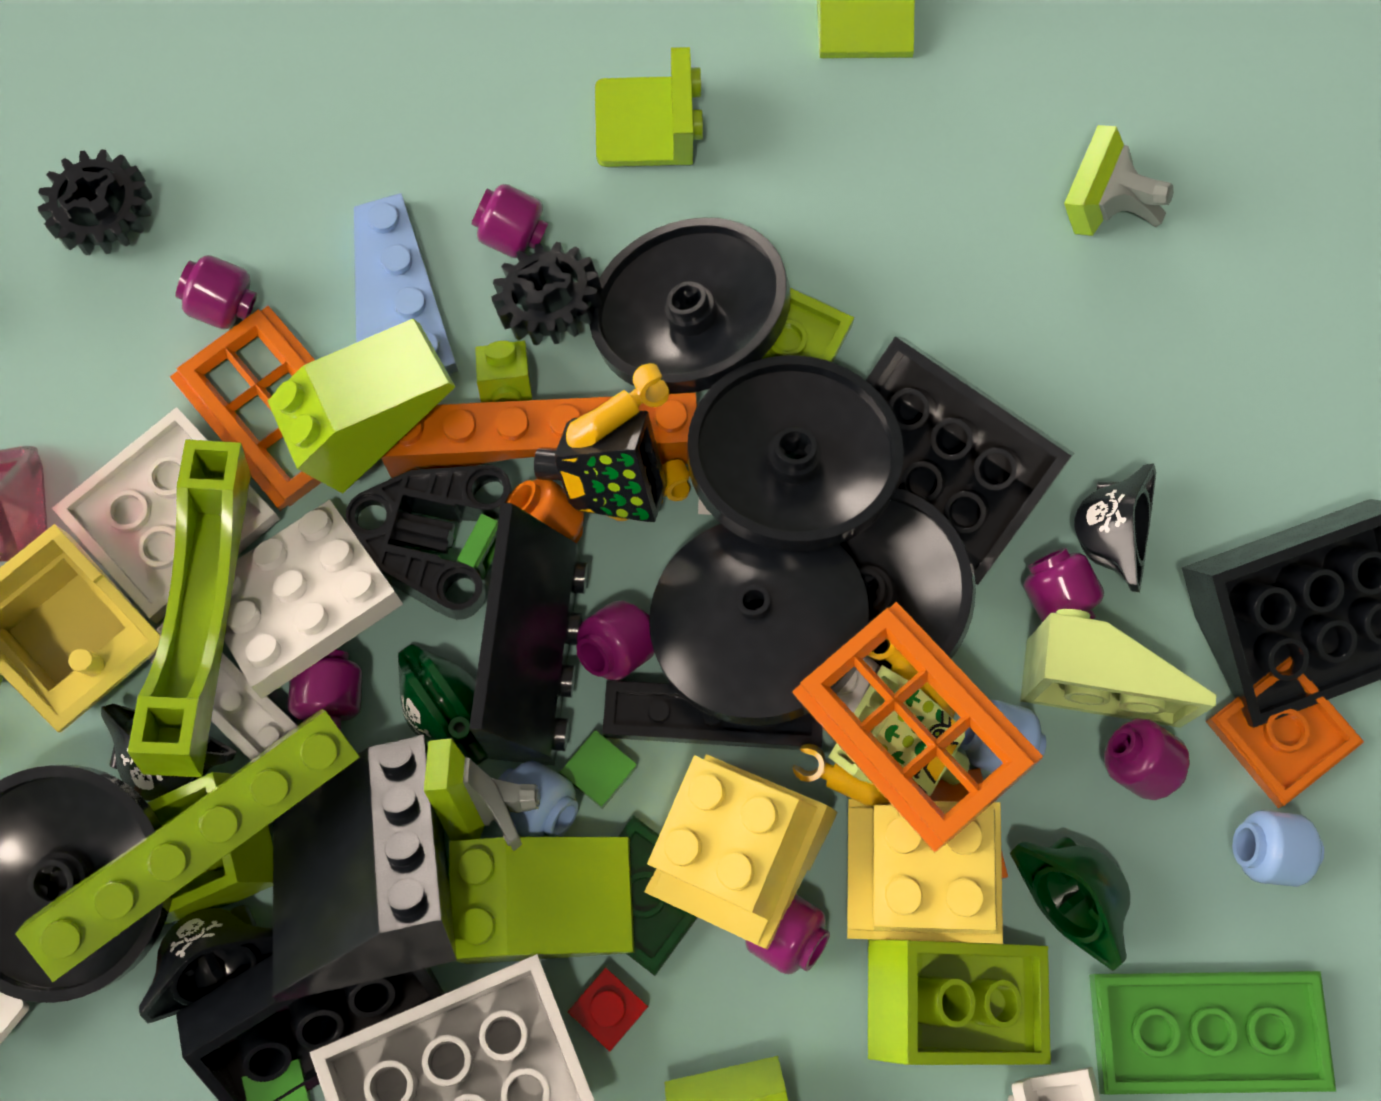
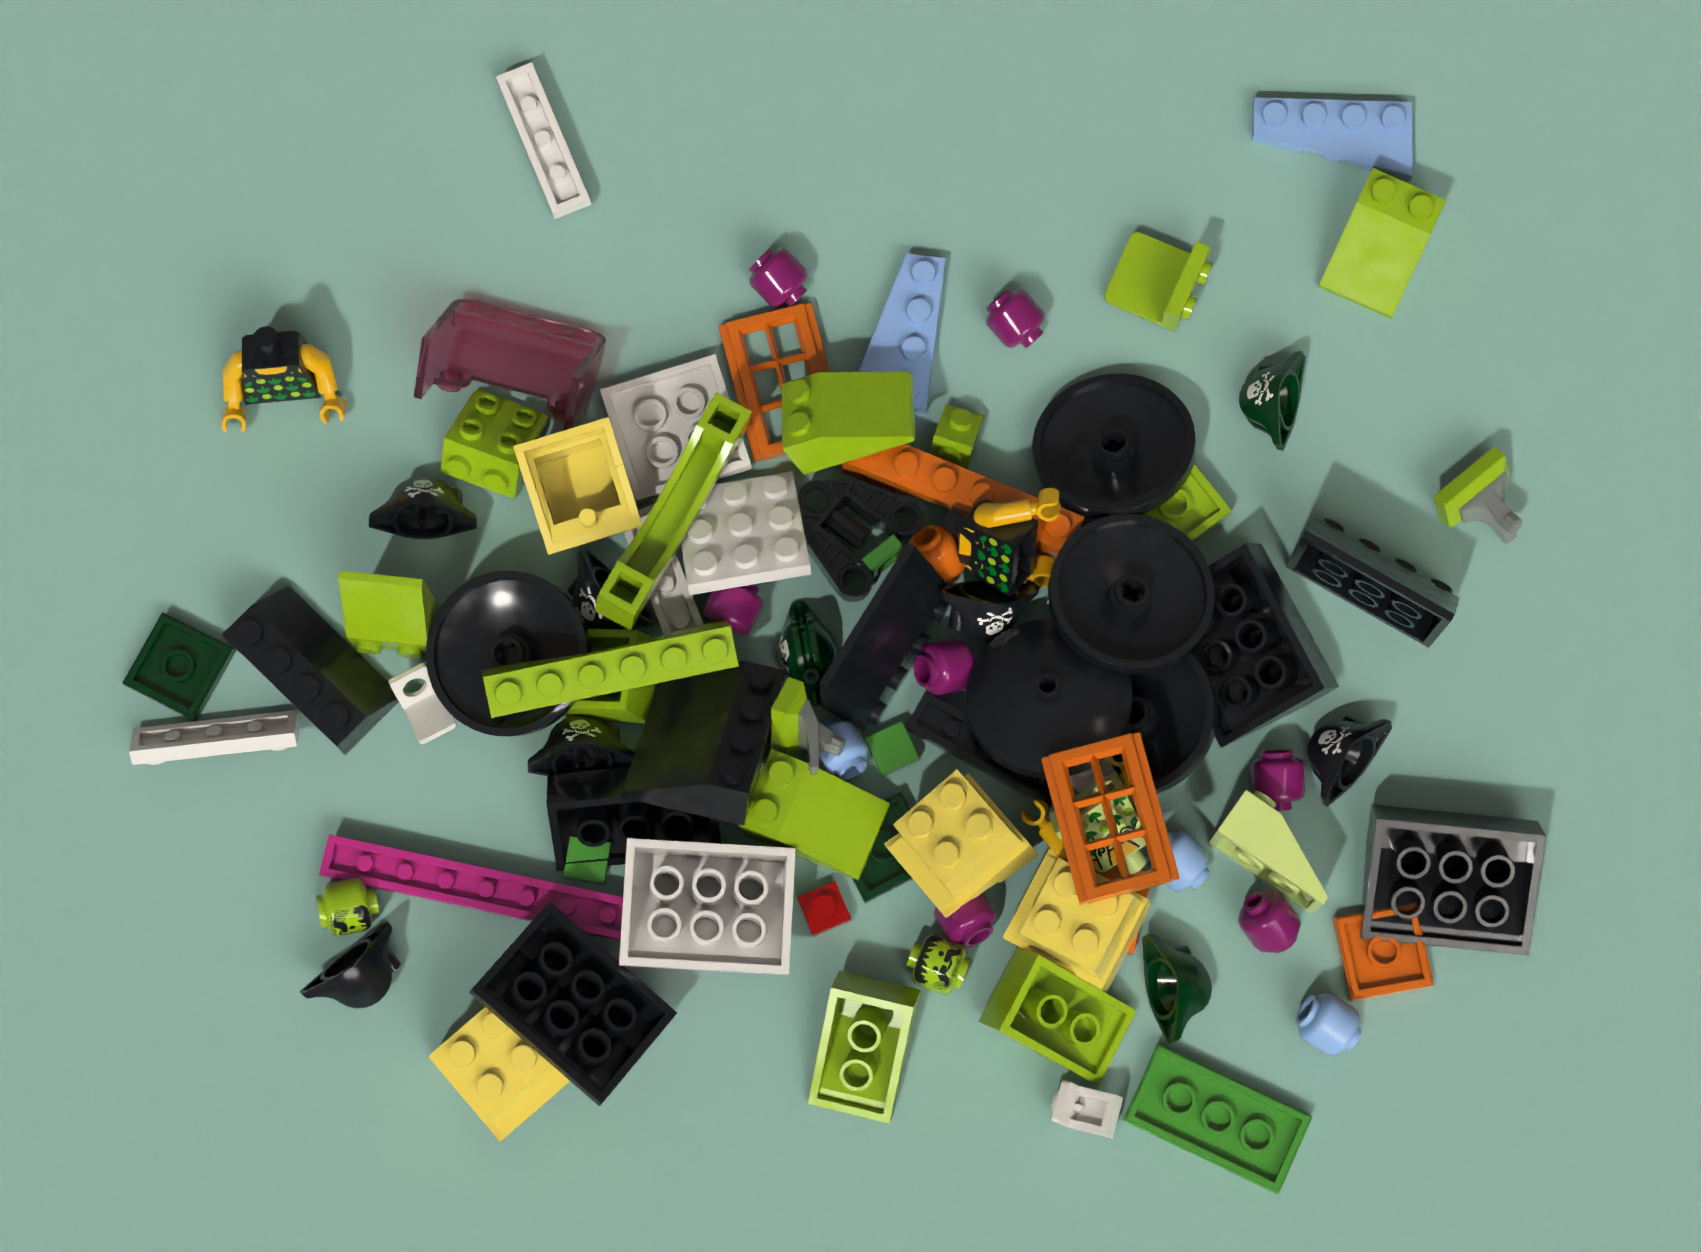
camera: 30 degrees right, 5 degrees up
(95, 202) = (703, 168): black gear -> none
(547, 293) = (1016, 388): black gear -> none
(630, 552) = (984, 609): none -> black hat
(784, 1010) = (938, 964): none -> lime head
(833, 183) = (1273, 397): none -> dark green hat
(1055, 323) = (1373, 581): none -> black slope

